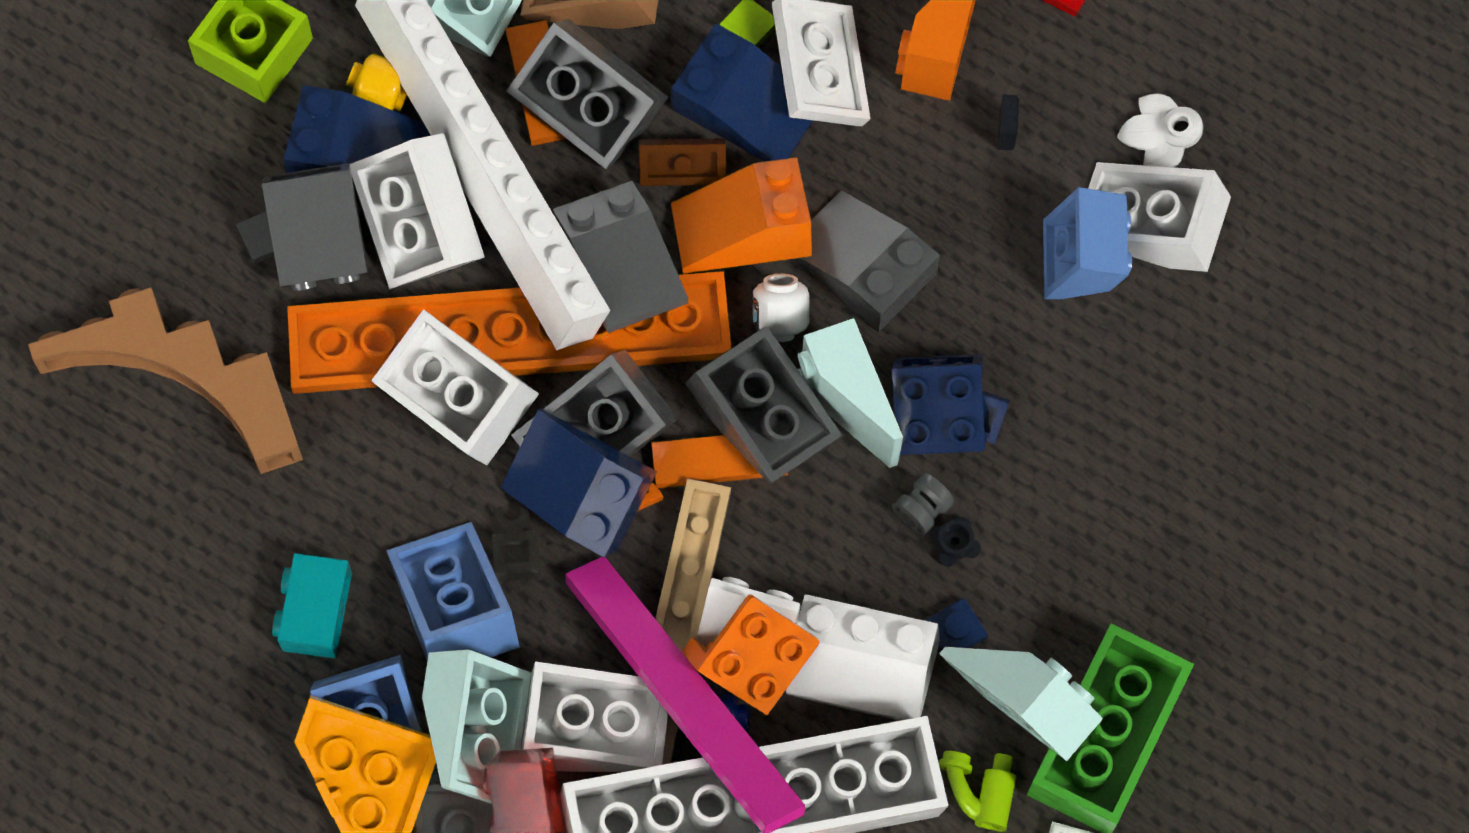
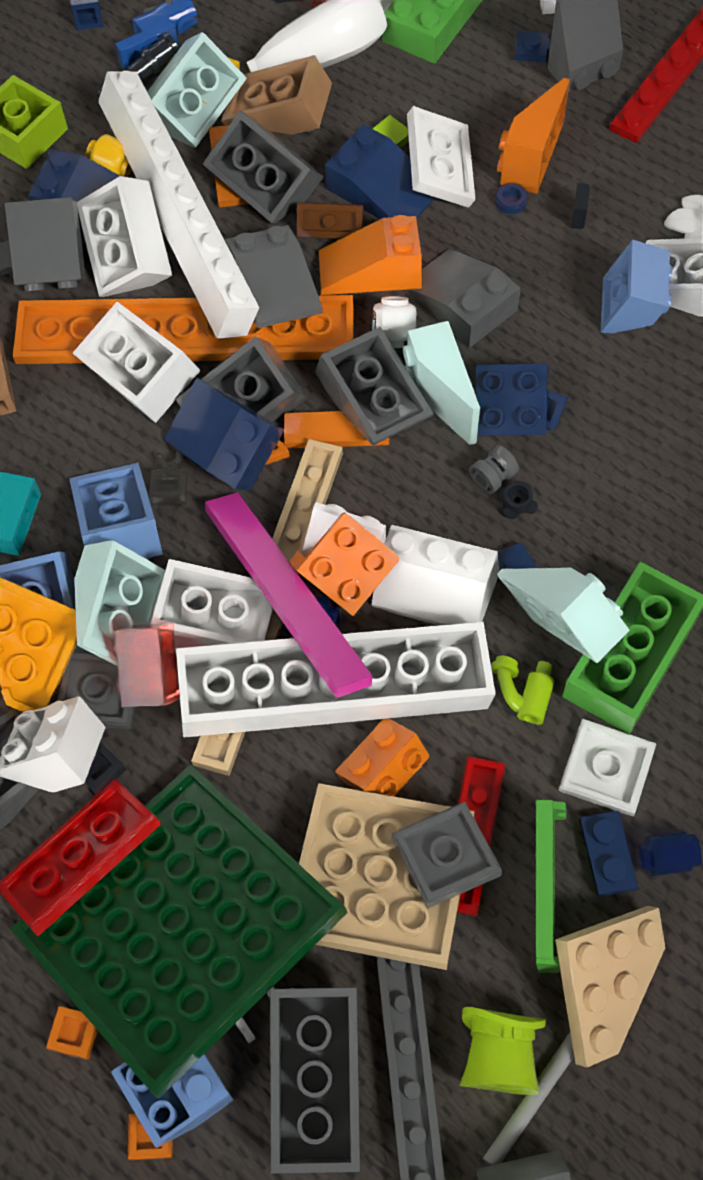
camera: 10 degrees right, 5 degrees down
(916, 111) = (511, 198): none -> dark blue tile

